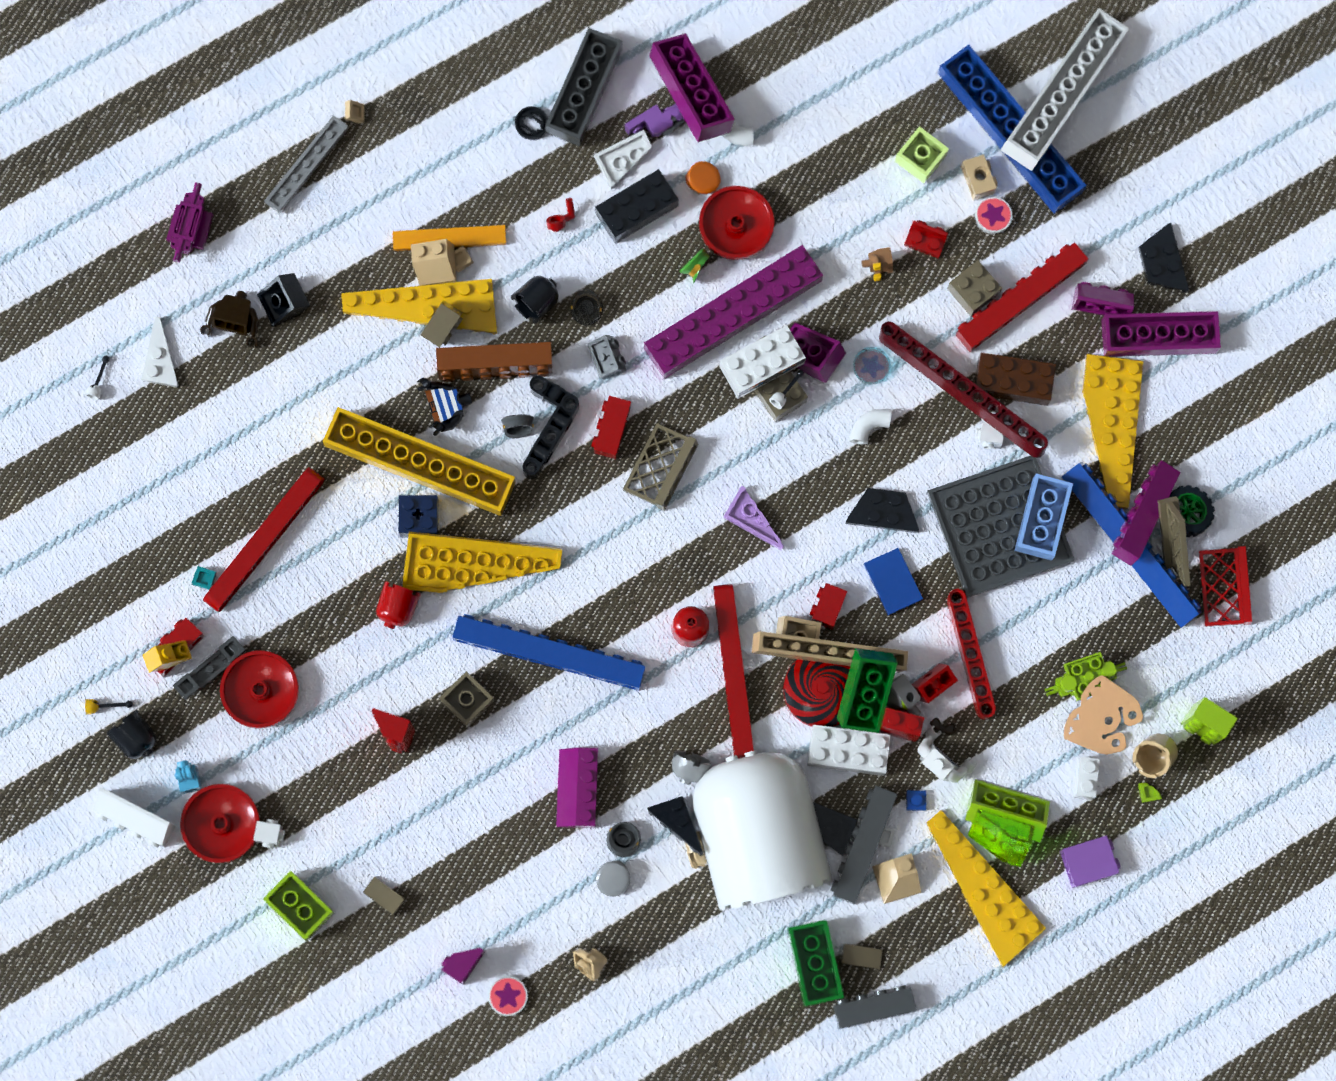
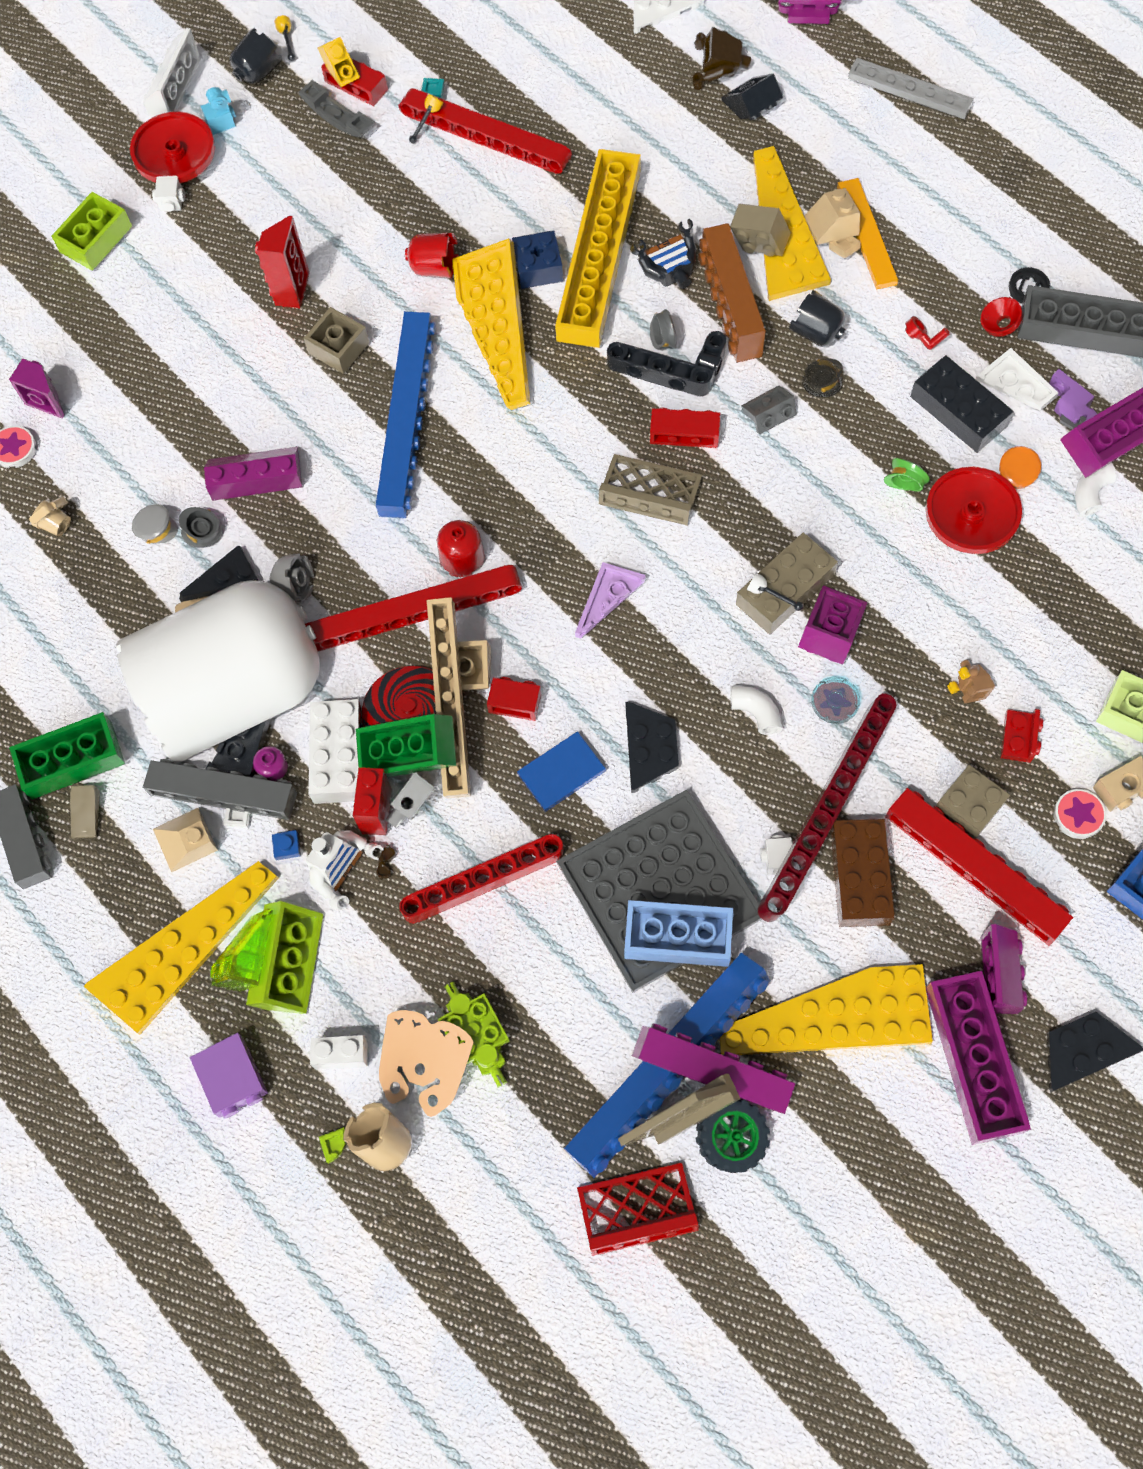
camera: 90 degrees right, 10 degrees down
(234, 578) = (432, 105): none -> hinge
(259, 689) = (319, 153): red dish -> none
(354, 111) = (984, 117): tan plate -> none
(384, 896) = (112, 312): dark tan slope -> none
(556, 160) = (1000, 309): none -> red piece
(733, 311) = (862, 529): magenta brick -> none
(762, 362) = (799, 555): white brick -> none
(850, 802) = (270, 763): none -> magenta head
(934, 682) = (435, 836): red brick -> none
(1208, 721) = (433, 1203): lime brick -> none

